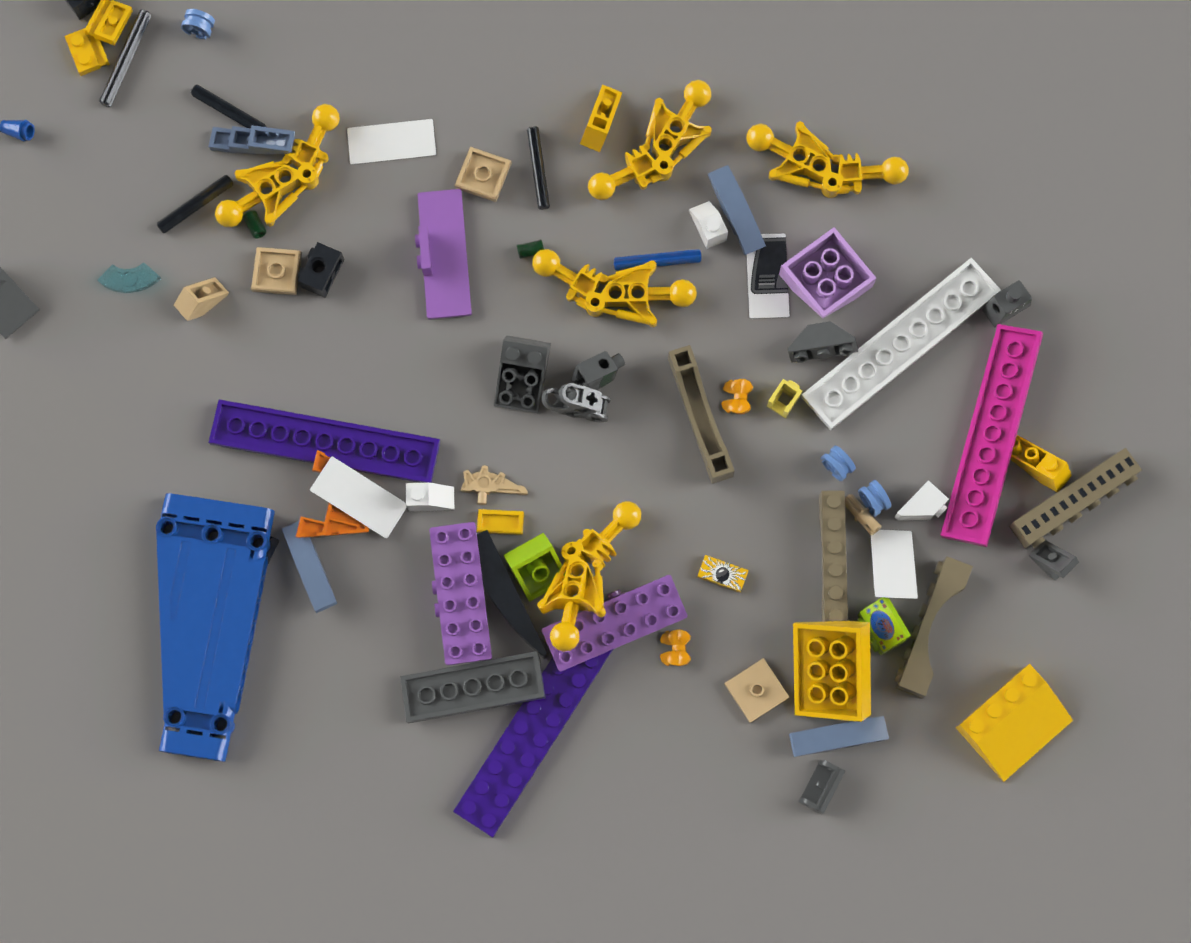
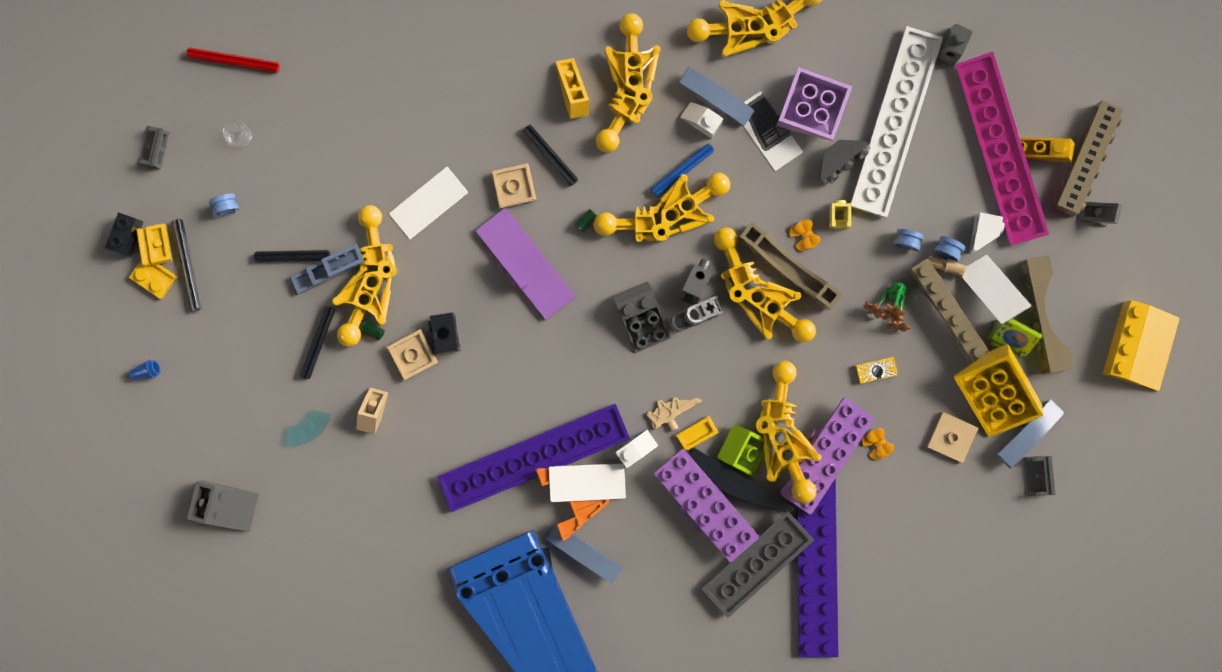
camera: 30 degrees left, 10 degrees up
(649, 395) = (741, 274): none -> yellow piece
(790, 509) = (894, 312): none -> dark orange plant

